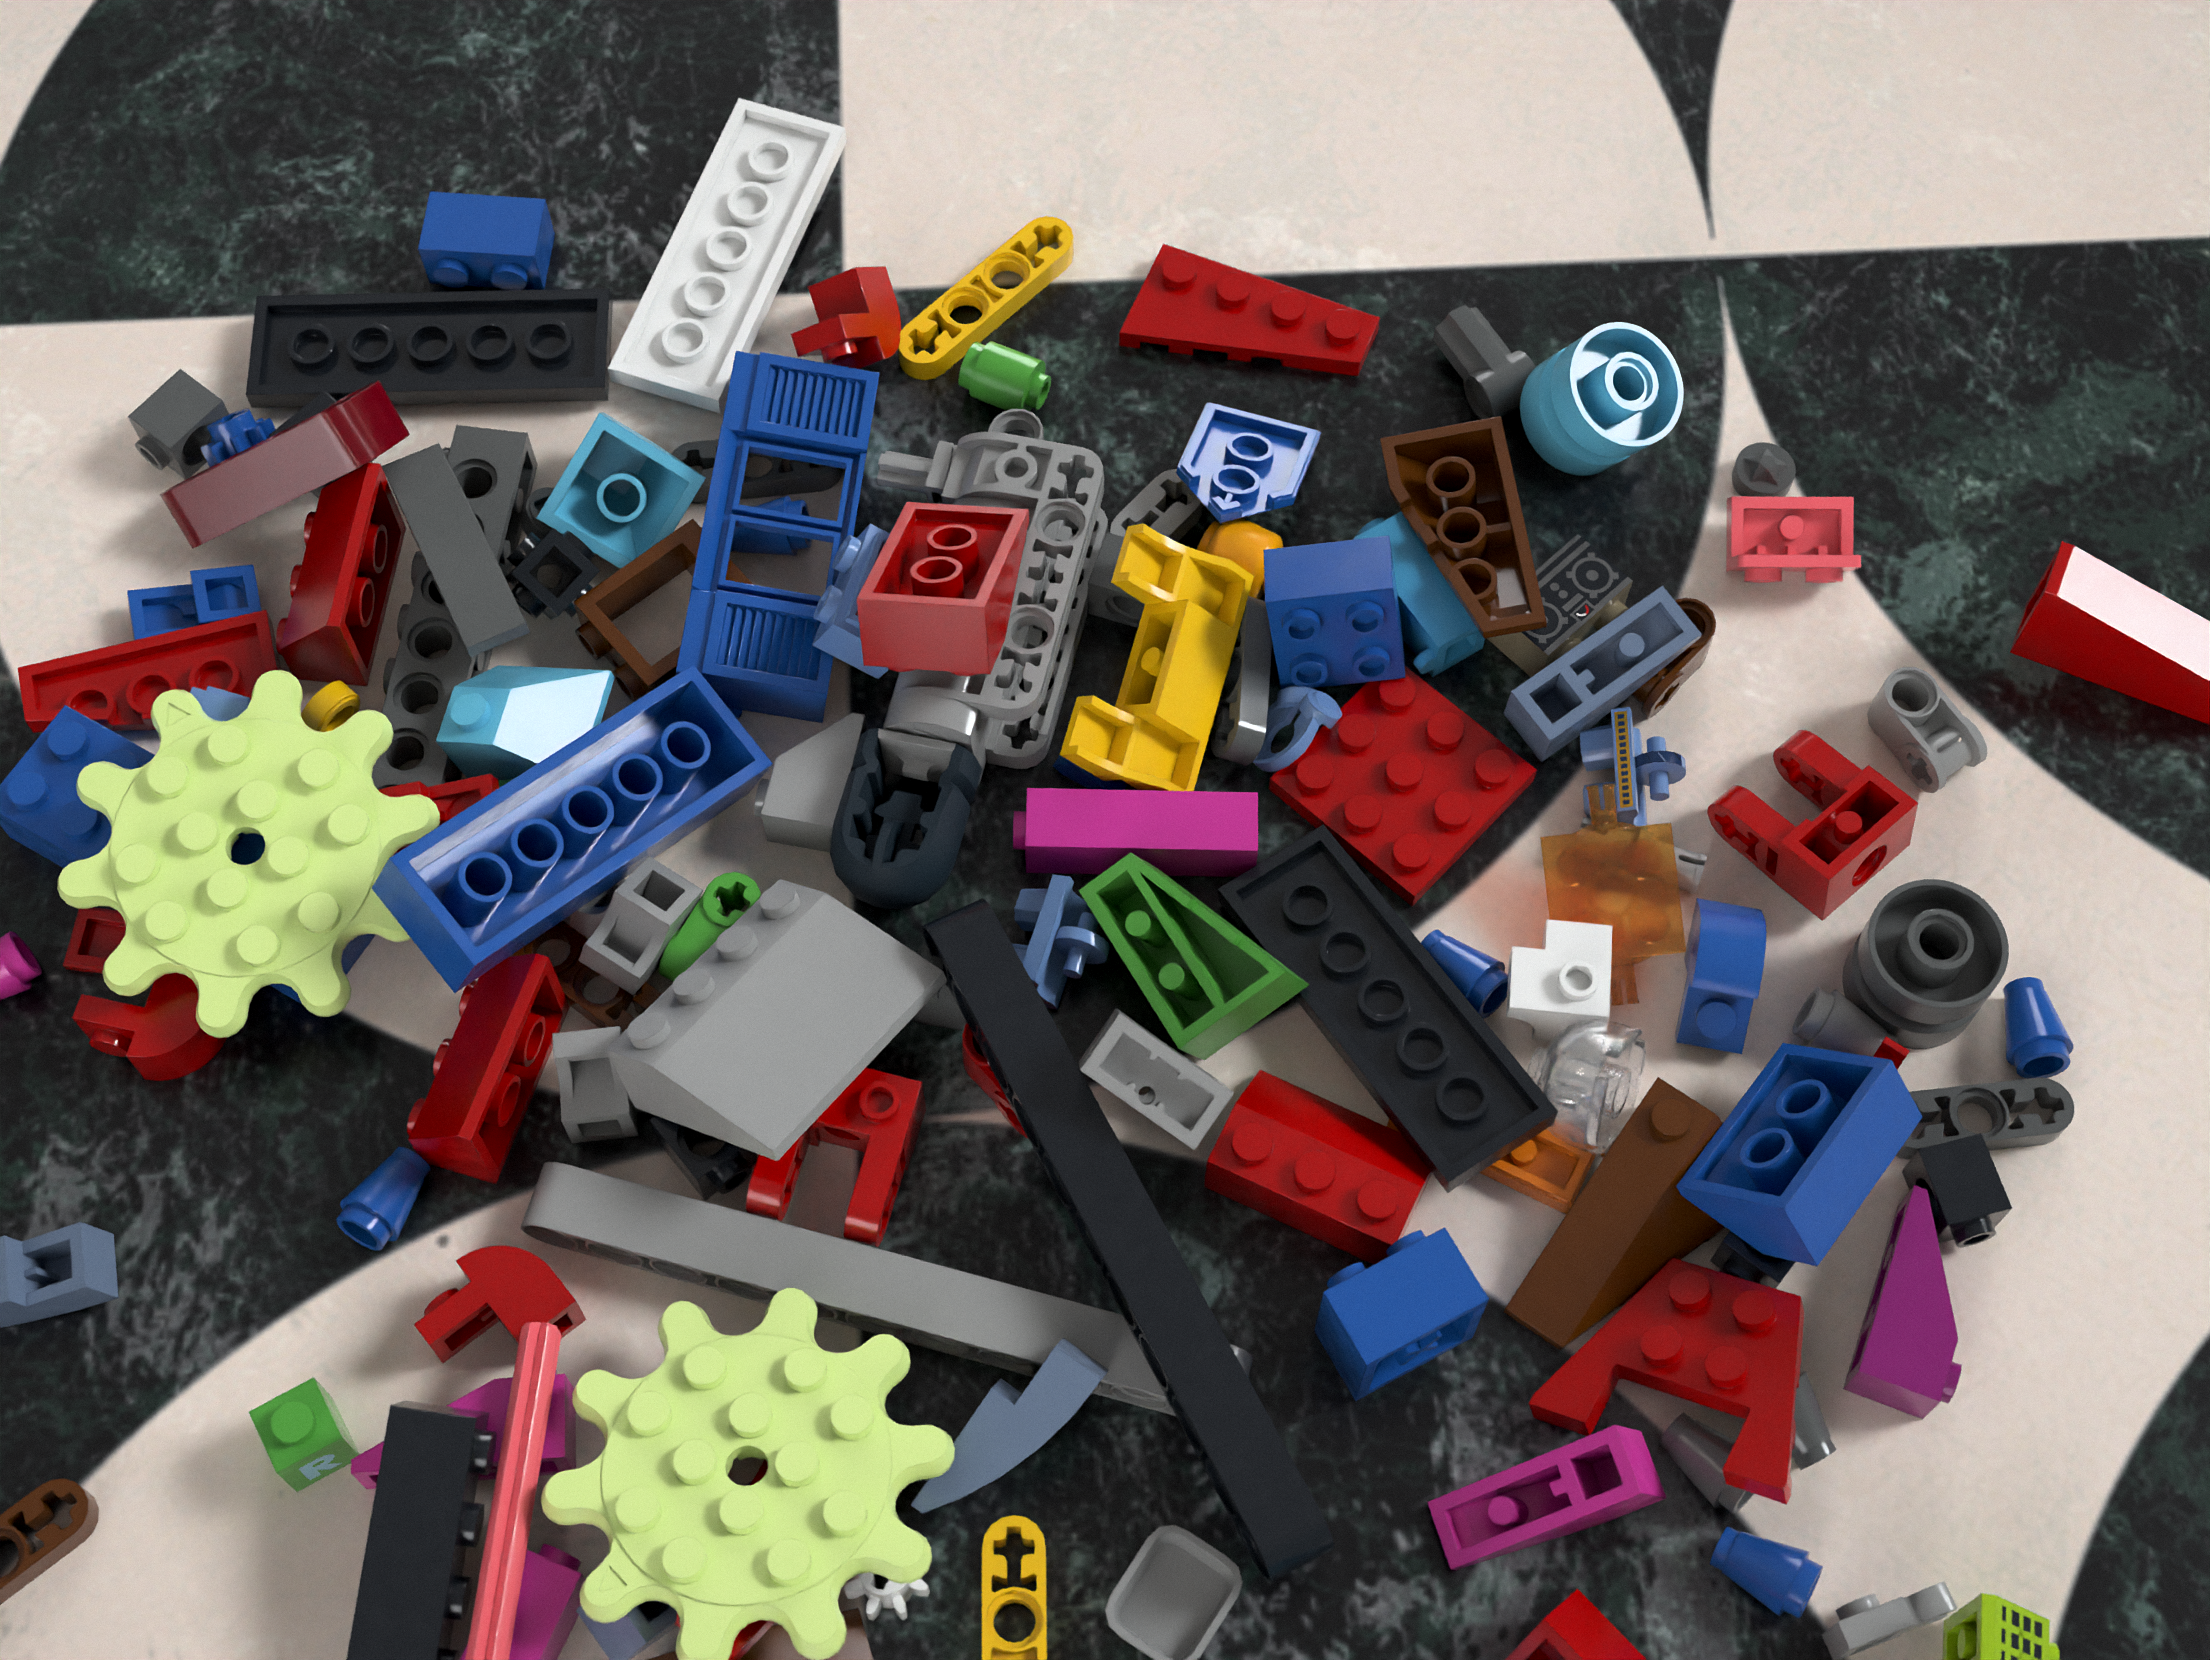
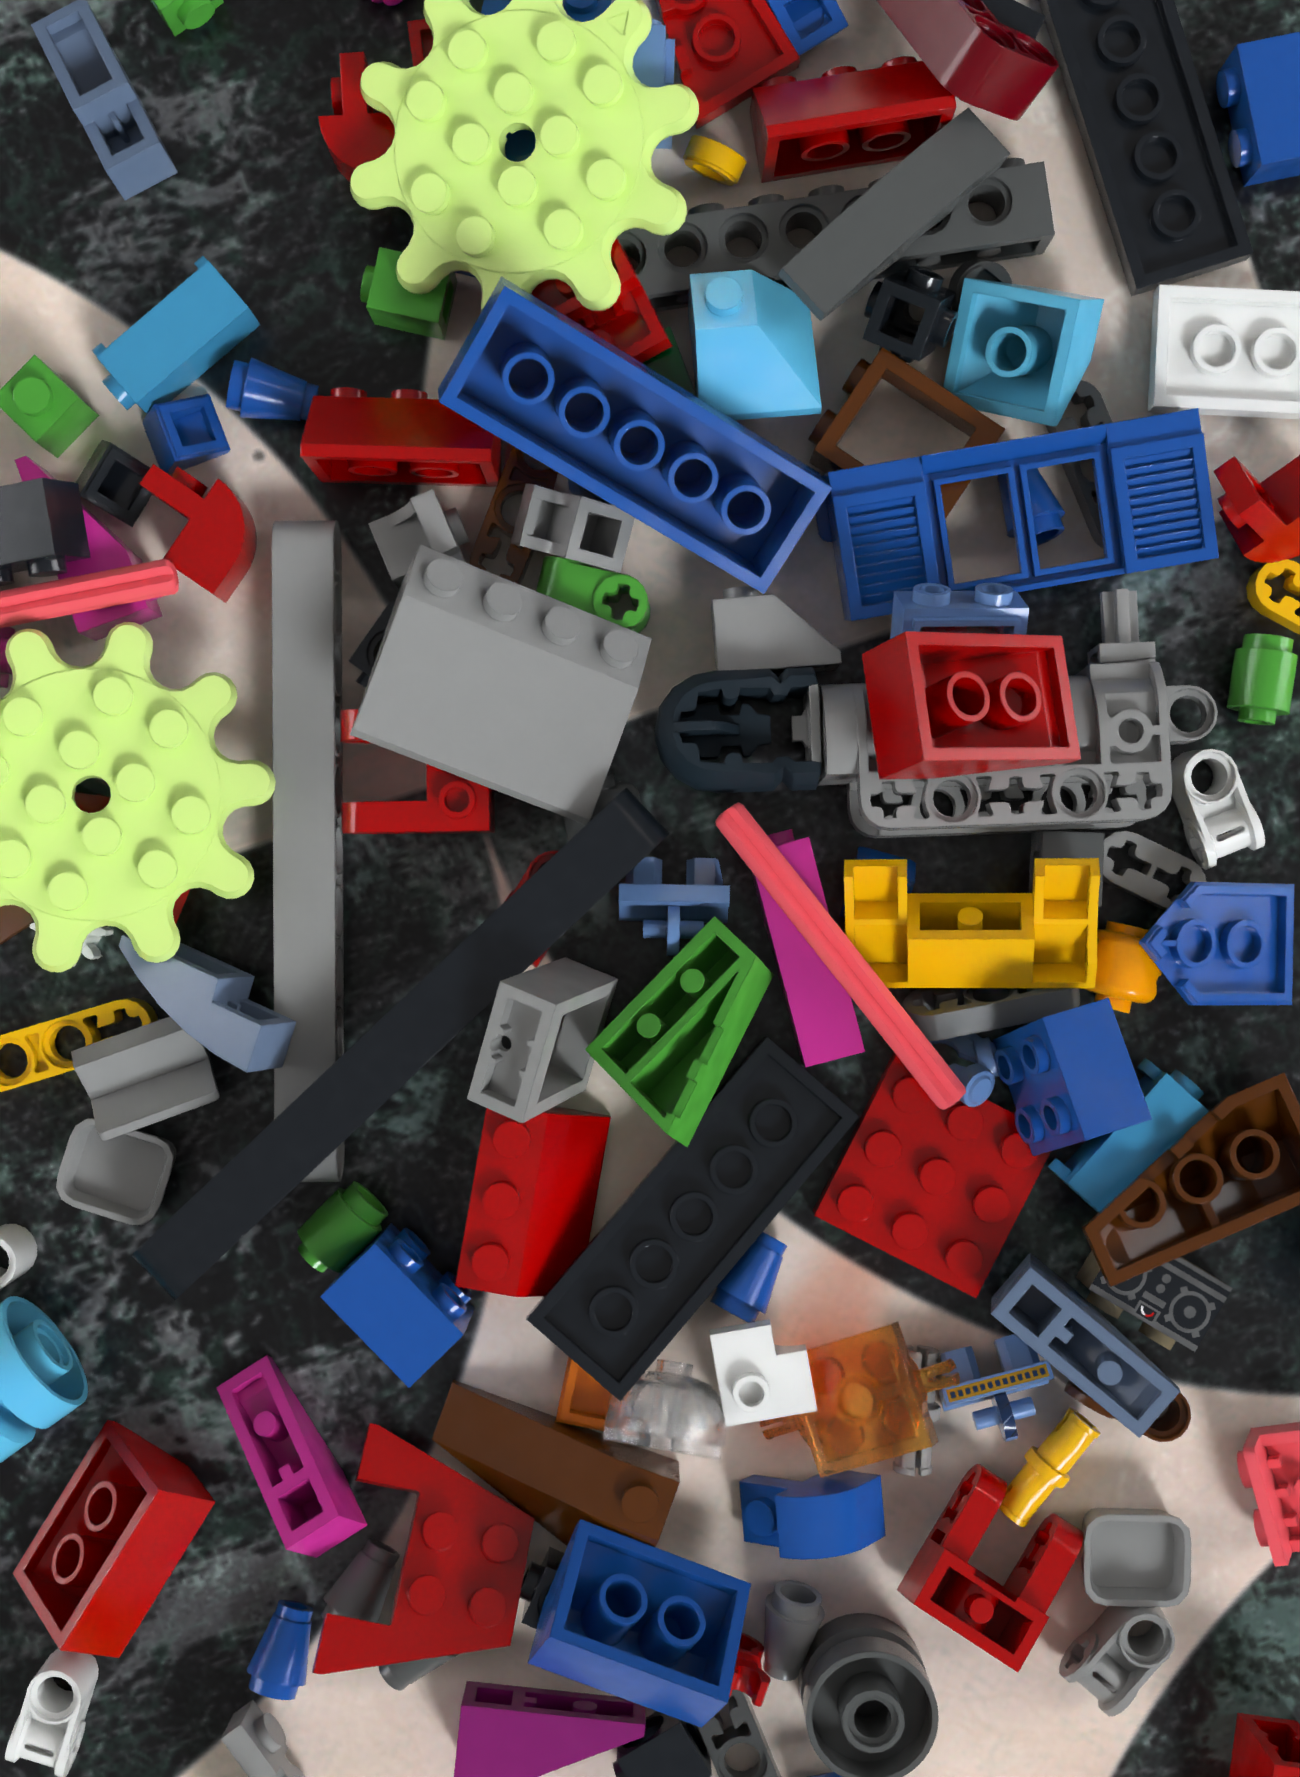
camera: 75 degrees right, 25 degrees up
(289, 1278) = (176, 340): none -> dark azure brick
(343, 1041) = (398, 308): none -> bright green brick
(387, 1307) = (185, 433): none -> blue slope
(411, 1378) = (113, 483): none -> black slope
(1075, 1530) = (144, 1077): none -> light grey panel
(1117, 442) = (1216, 810): none -> white piece
(1152, 784) = (840, 956): none -> coral axle
(1304, 1370) = (341, 1228): none -> bright green brick
(1721, 746) = (1048, 1466): none -> yellow pin
(1830, 690) = (1135, 1557): none -> light grey piece

